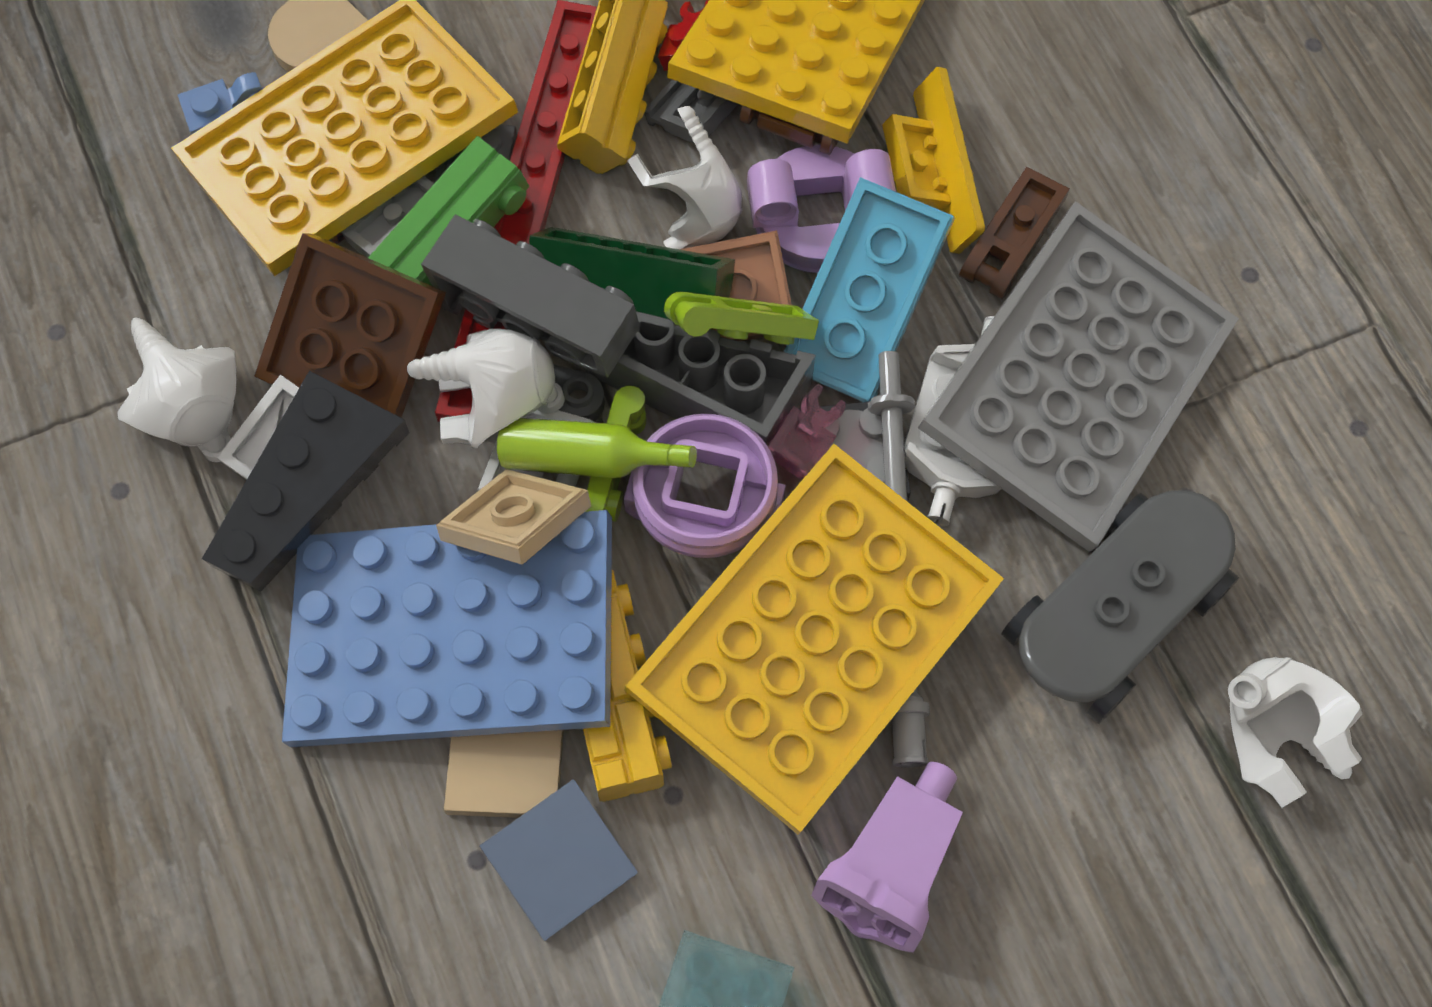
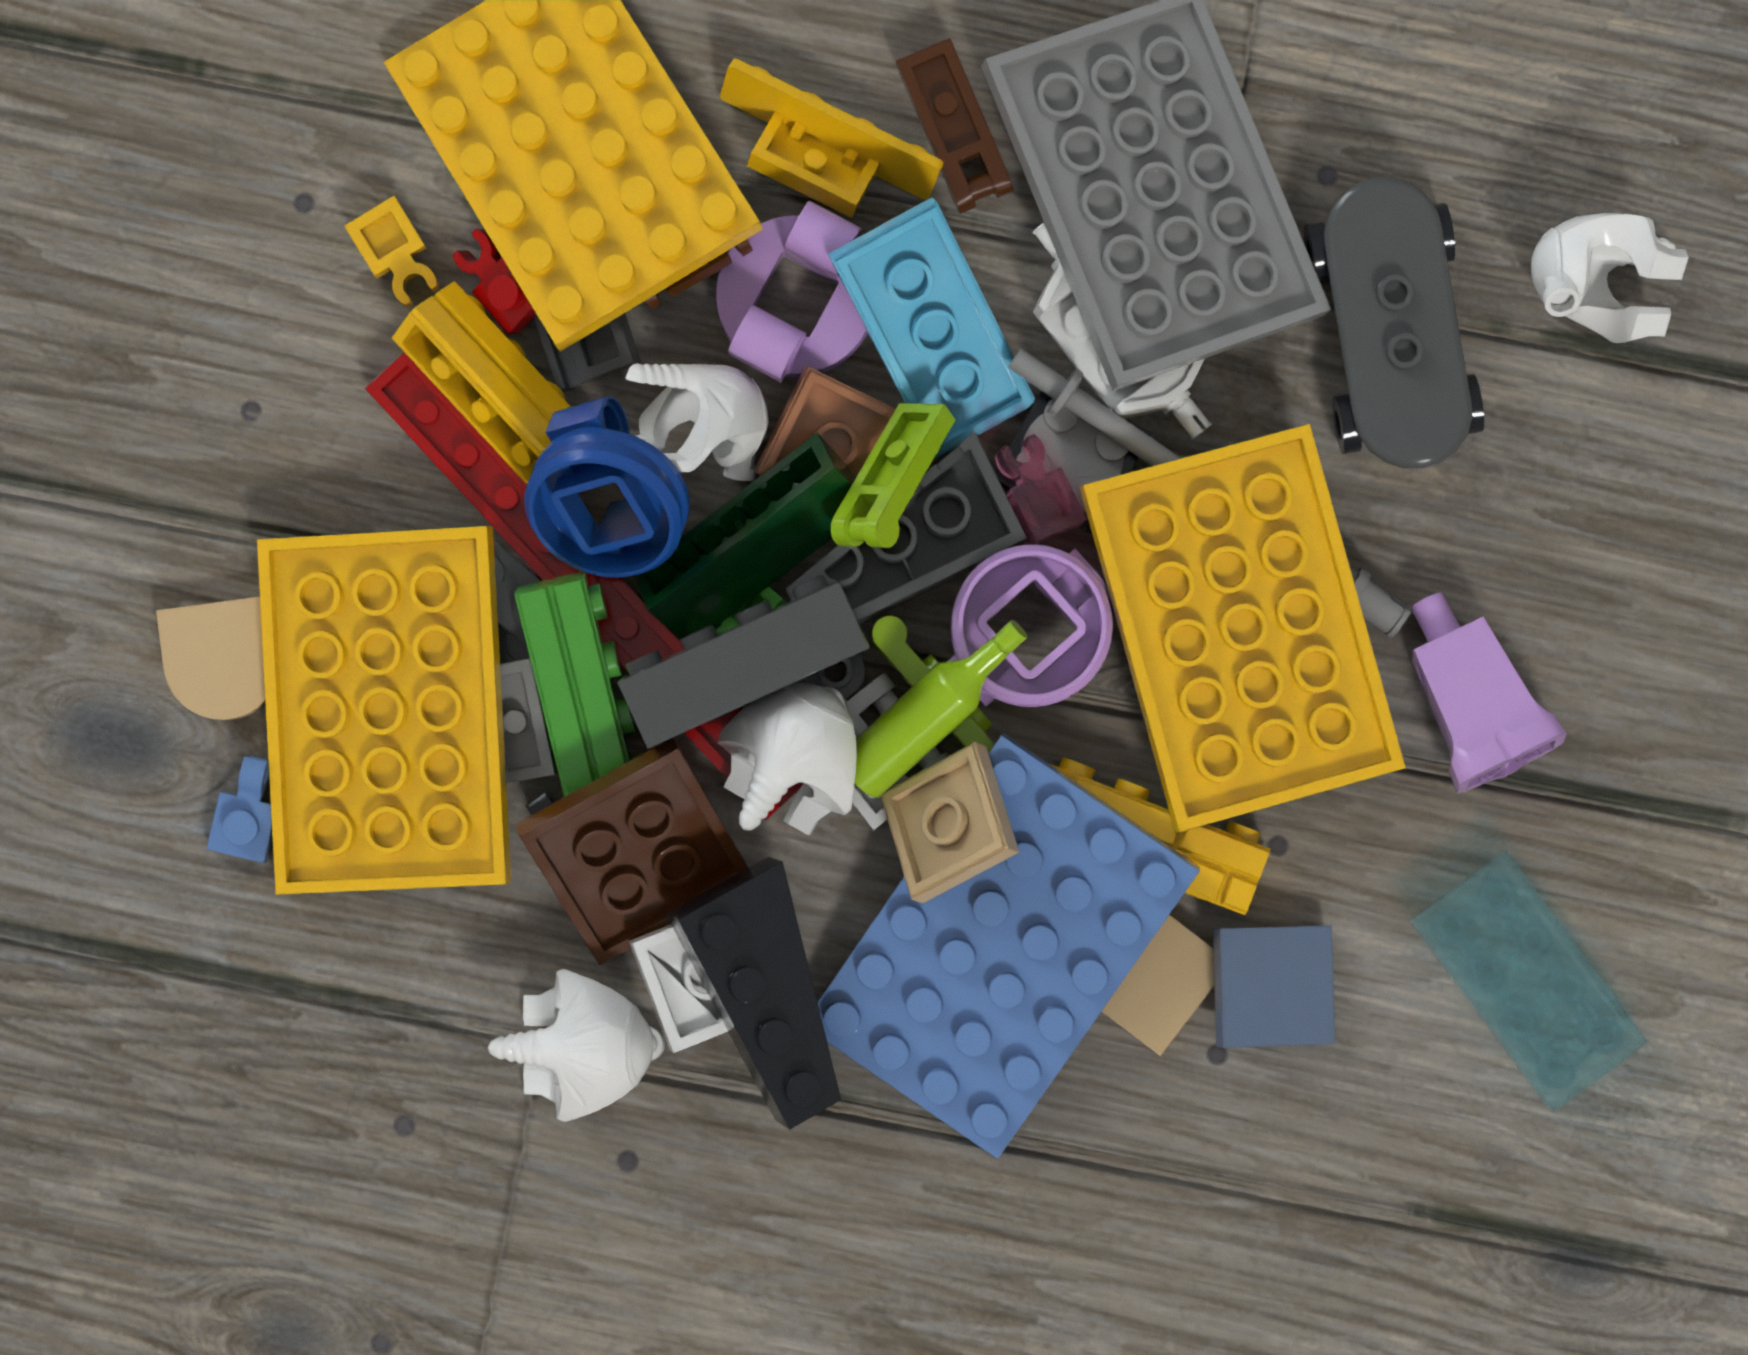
camera: 55 degrees left, 20 degrees up
(622, 121) = (594, 449): none -> blue piece

